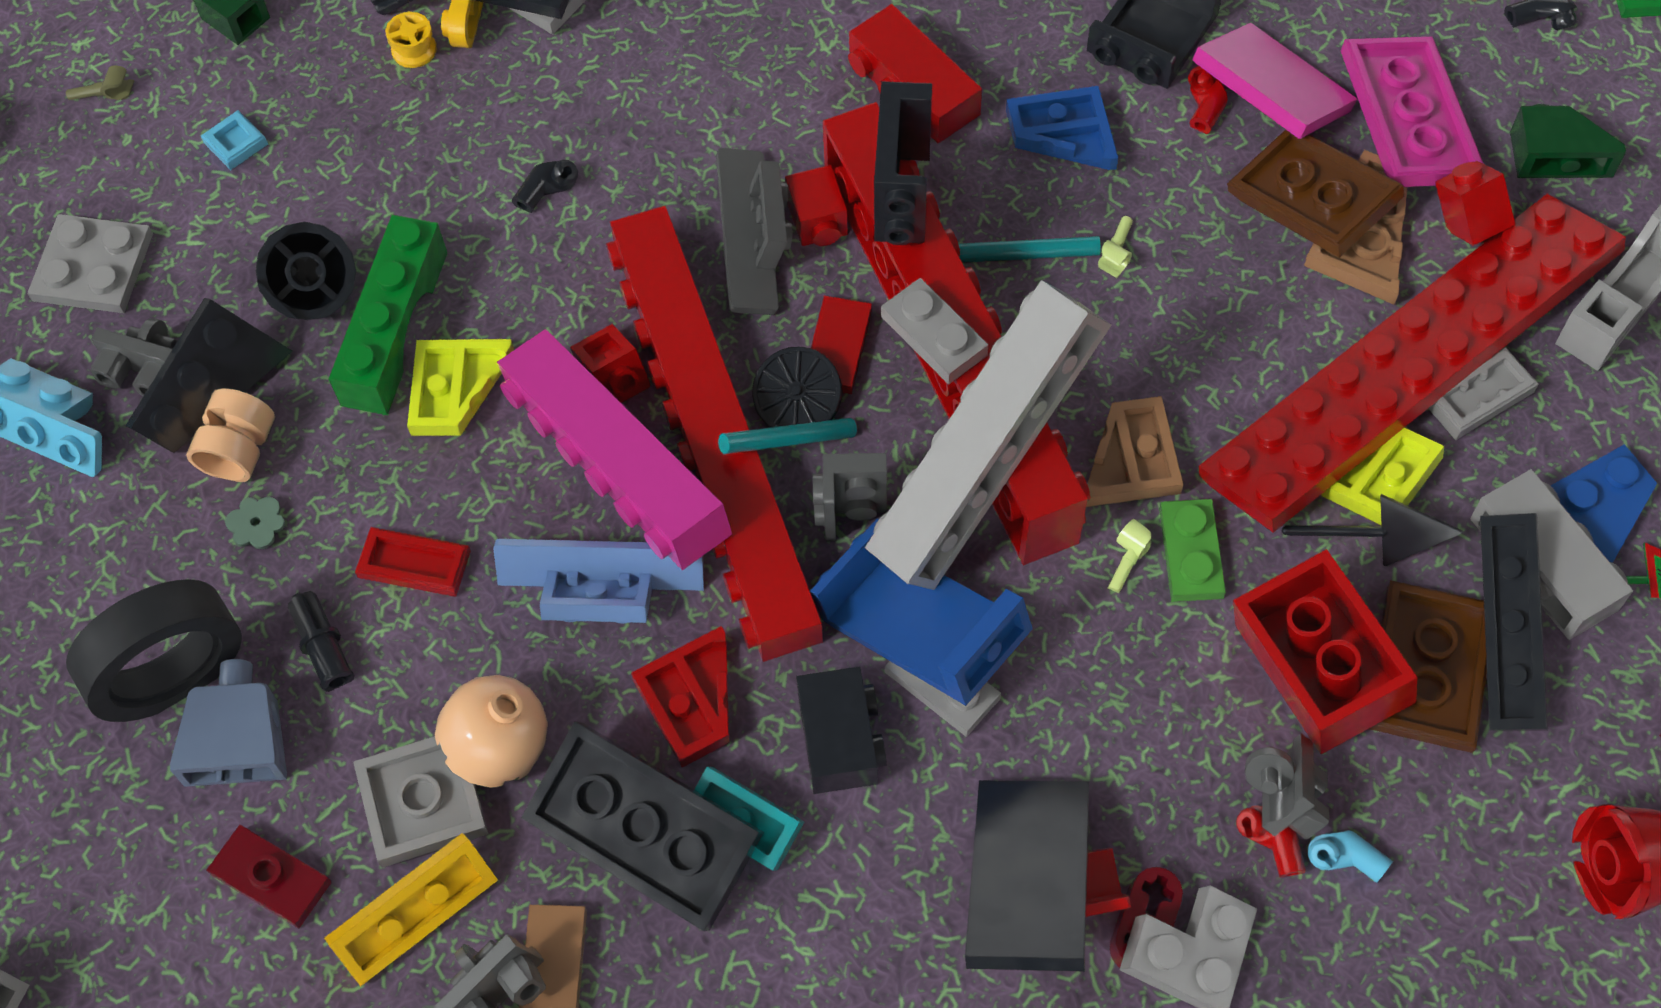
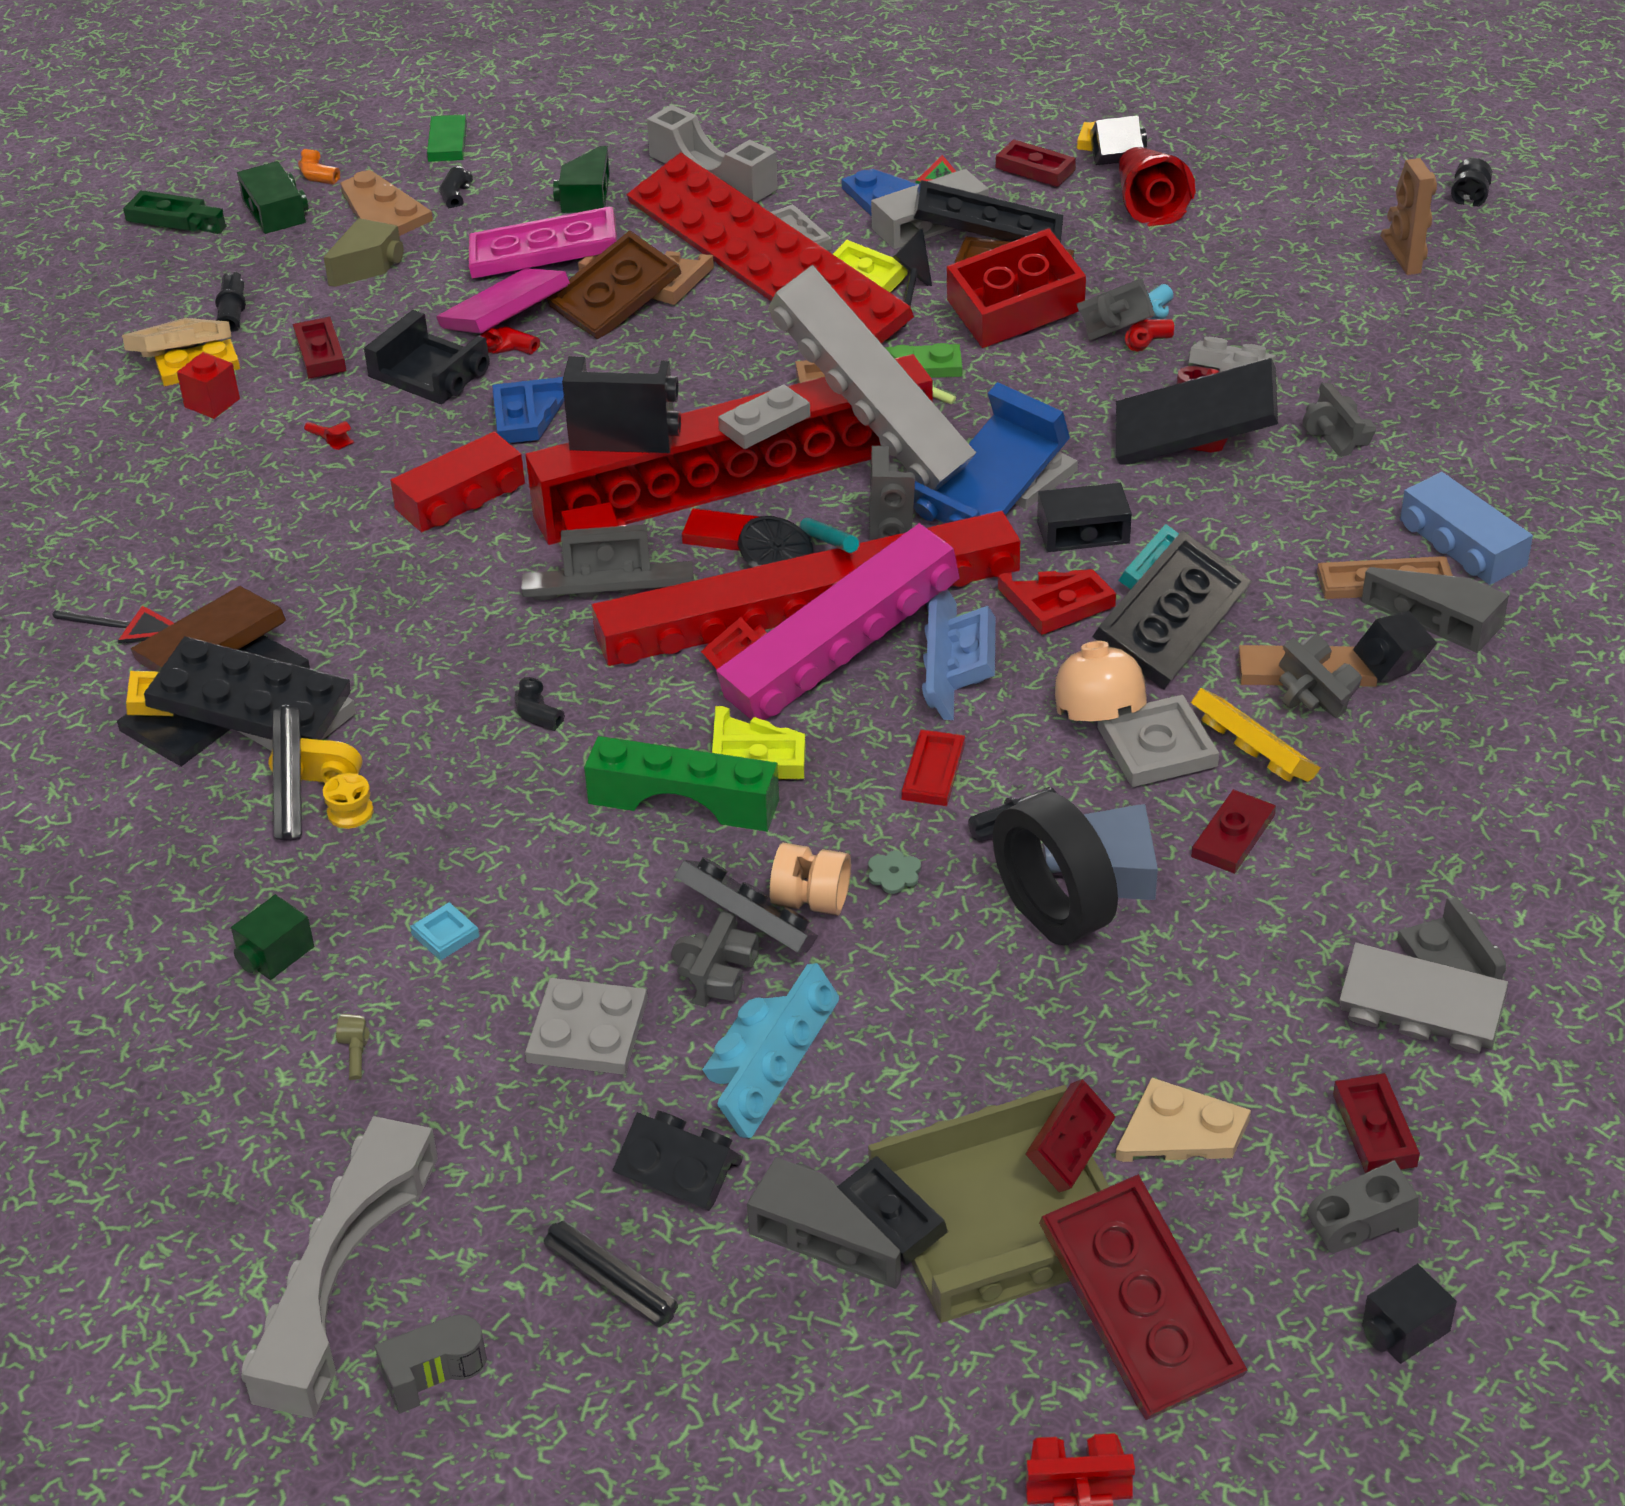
camera: 90 degrees left, 20 degrees down
(305, 271) = (633, 833): black cylinder -> none
(1475, 202) = (640, 212): red brick -> none

